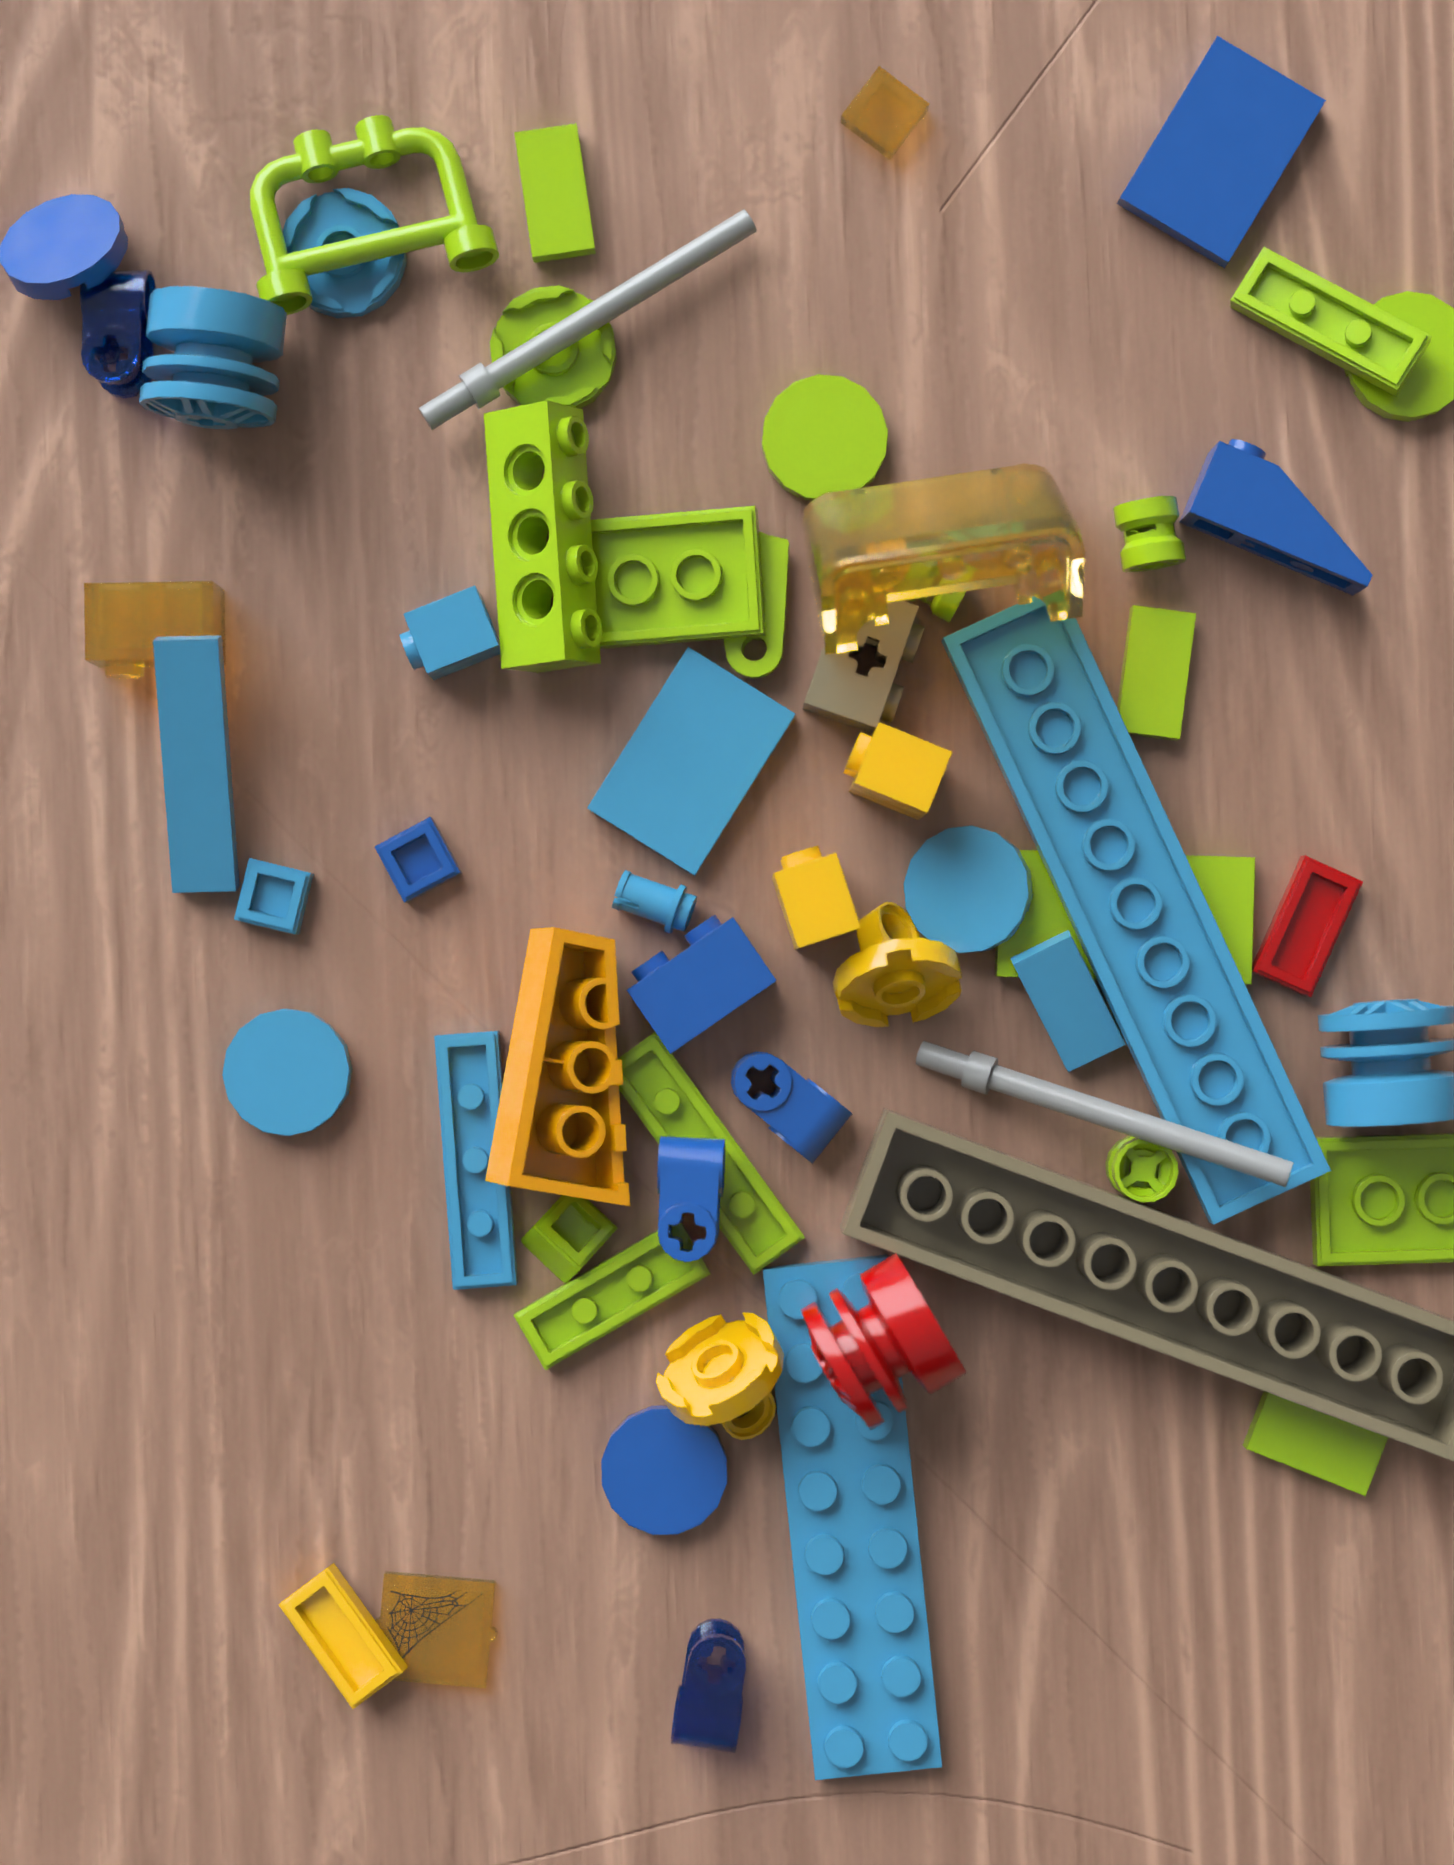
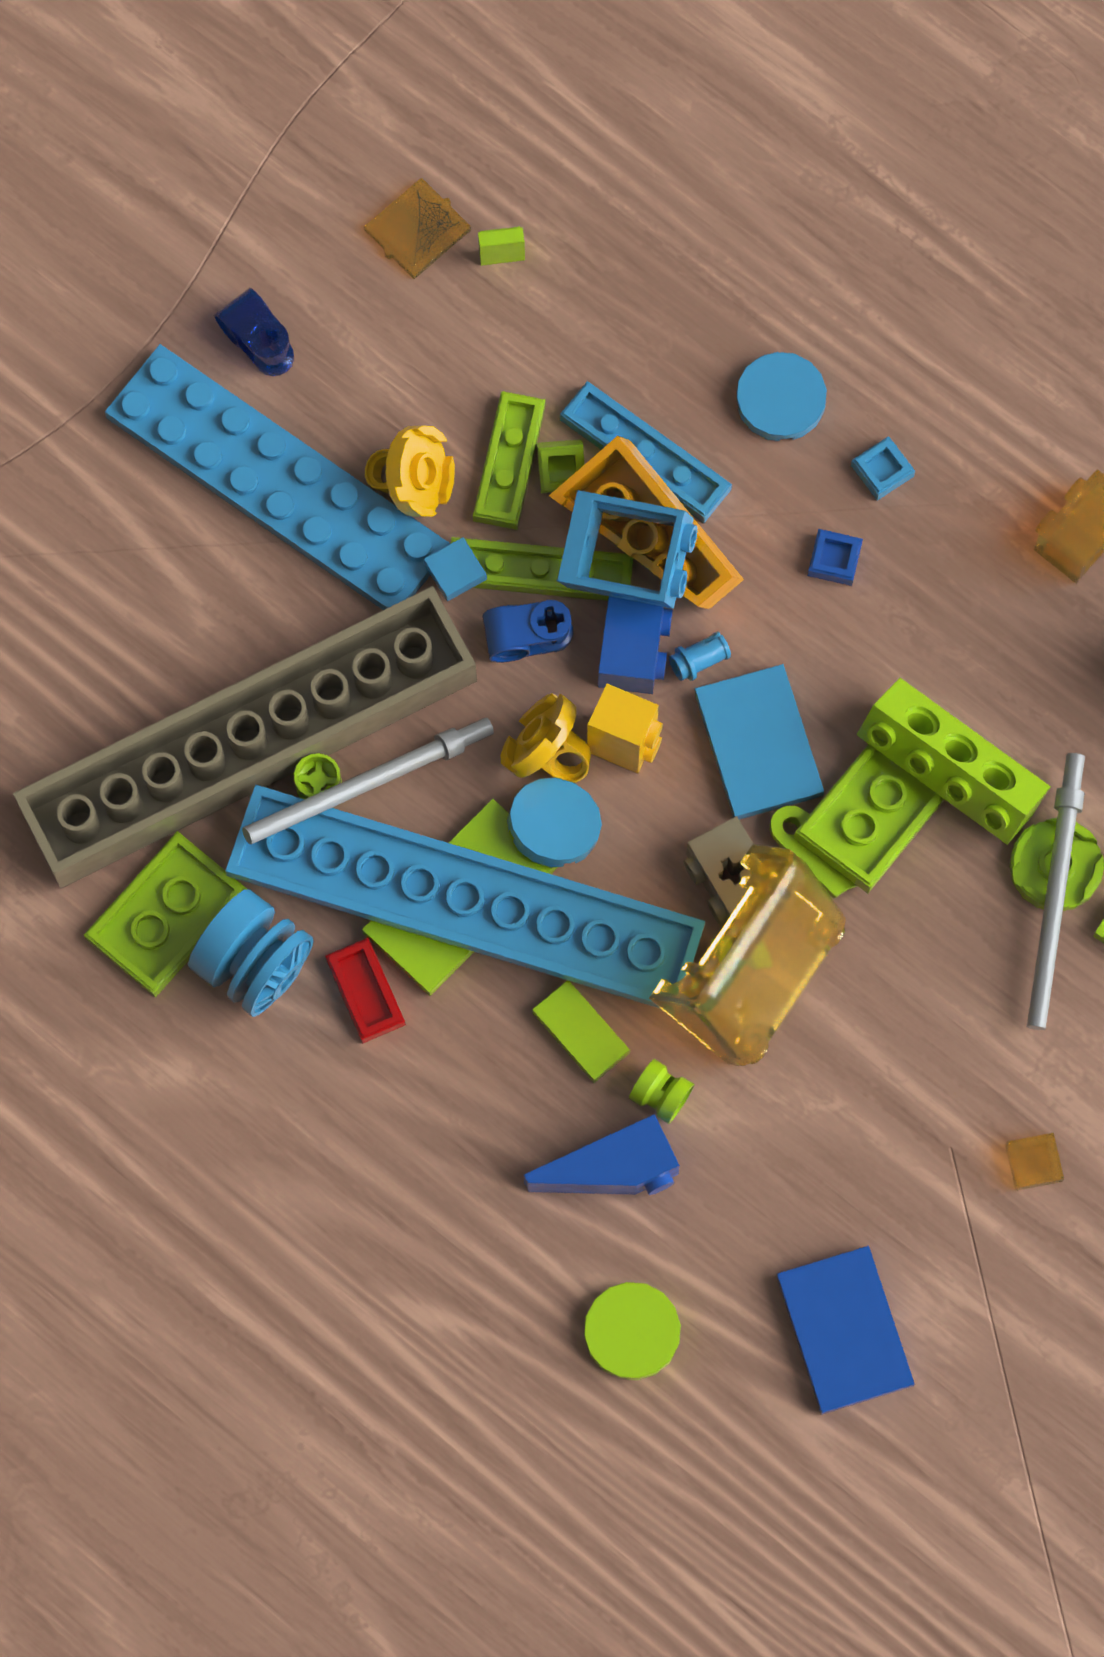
camera: 130 degrees right, 15 degrees down
(196, 763) = (989, 481): dark azure tile -> none
(343, 1636) = (458, 179): yellow tile -> none
(381, 1519) = (501, 245): none -> lime tile
(450, 634) = (944, 671): dark azure brick -> none
(662, 1116) = (583, 537): none -> dark azure window
(663, 1471) = (387, 401): blue tile -> none
(689, 1182) = (530, 538): blue piece -> none
(790, 1235) = (455, 569): none -> dark azure tile
(824, 436) = (875, 966): lime tile -> none
(882, 1342) = (358, 554): red wheel -> none
(896, 770) = (654, 831): yellow brick -> none
(1068, 1001) = (447, 819): dark azure tile -> none
(1315, 1443) = (81, 741): lime tile -> none
(1330, 321) = (691, 1298): lime tile -> none

